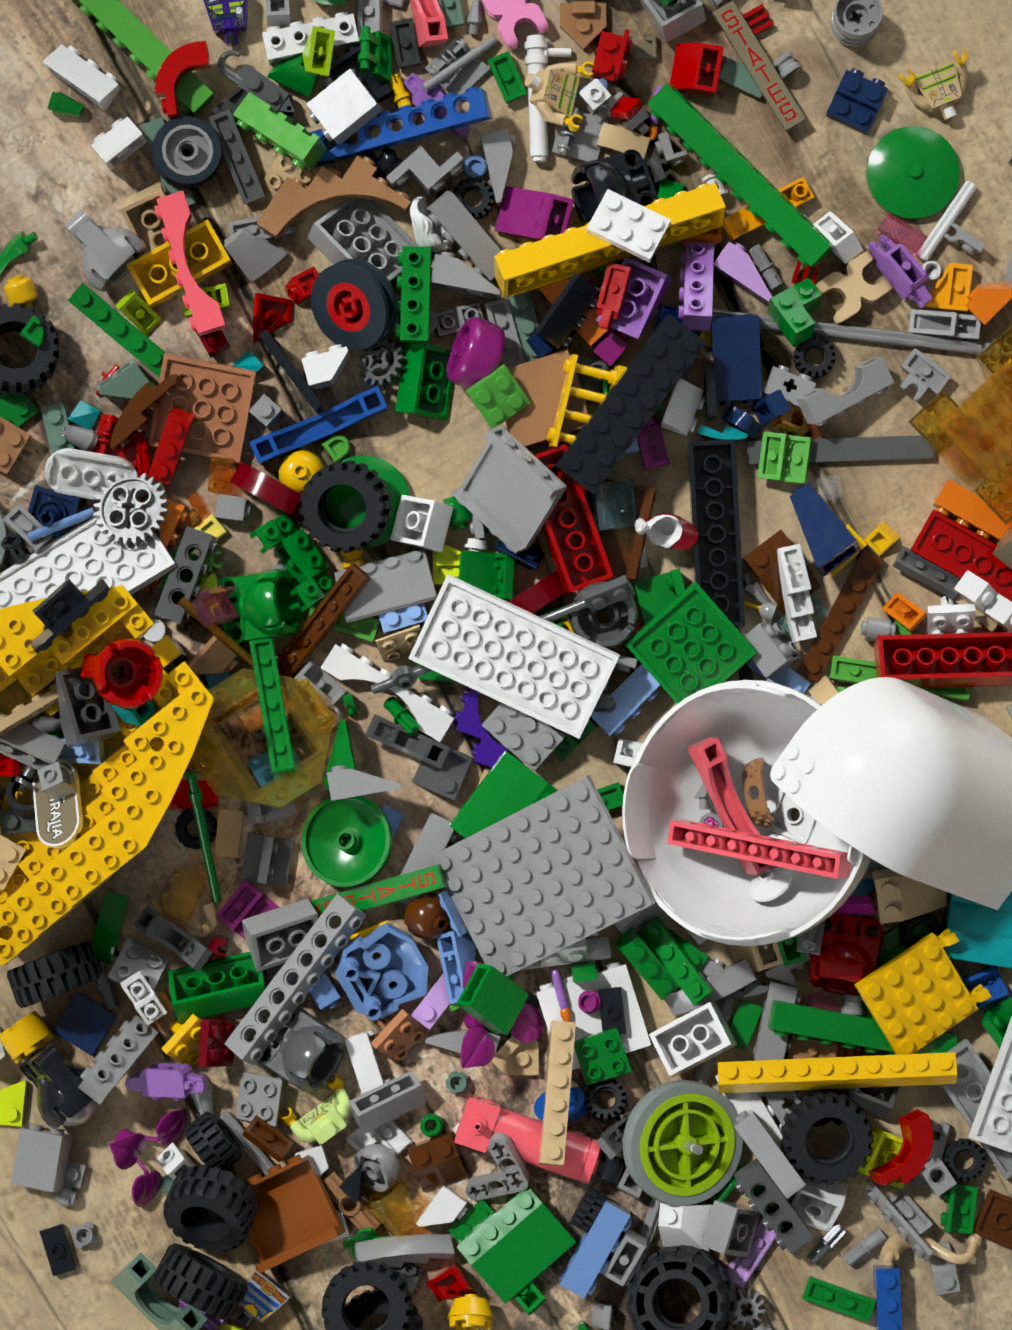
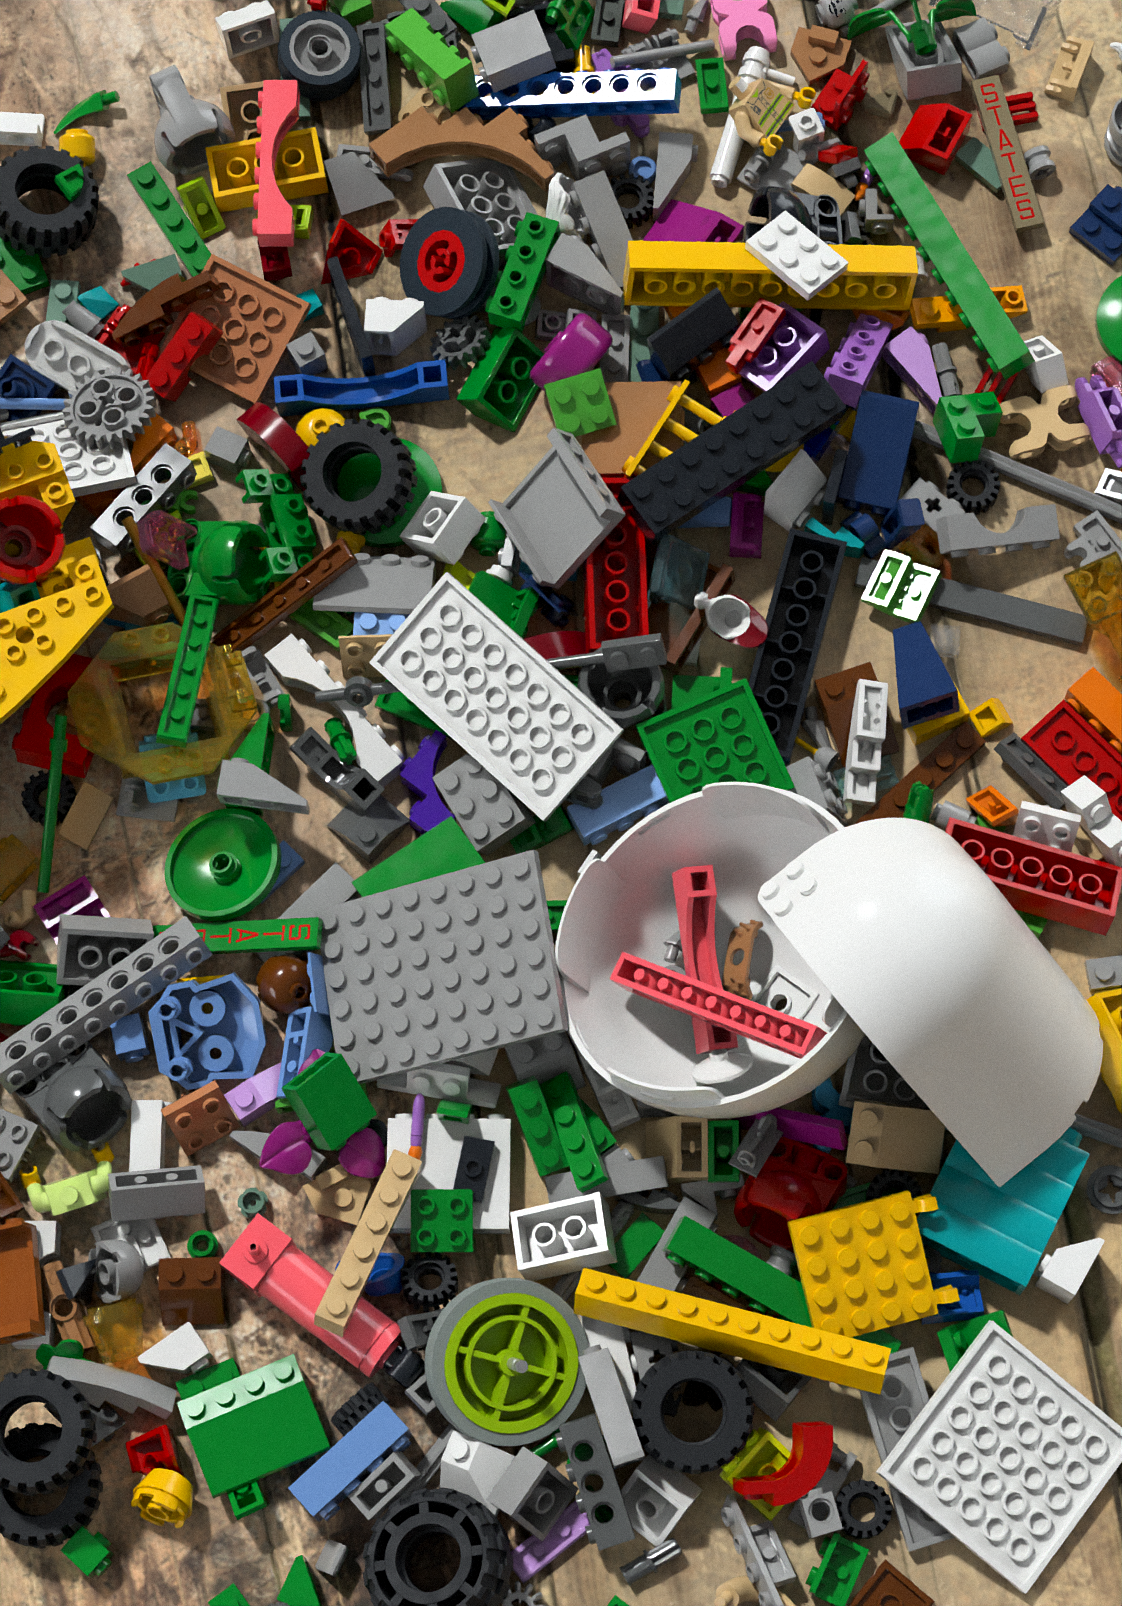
camera: 20 degrees right, 15 degrees down
(220, 475) = (228, 408): clear orange bracket -> none
(267, 859) = (121, 861): dark grey bracket -> none
(483, 1184) = (273, 1329): light grey beam -> none
(589, 1001) = (449, 1147): magenta plate -> none
(850, 634) = (919, 803): none -> green hinge
(864, 1247) = (698, 1581): light grey axle -> none

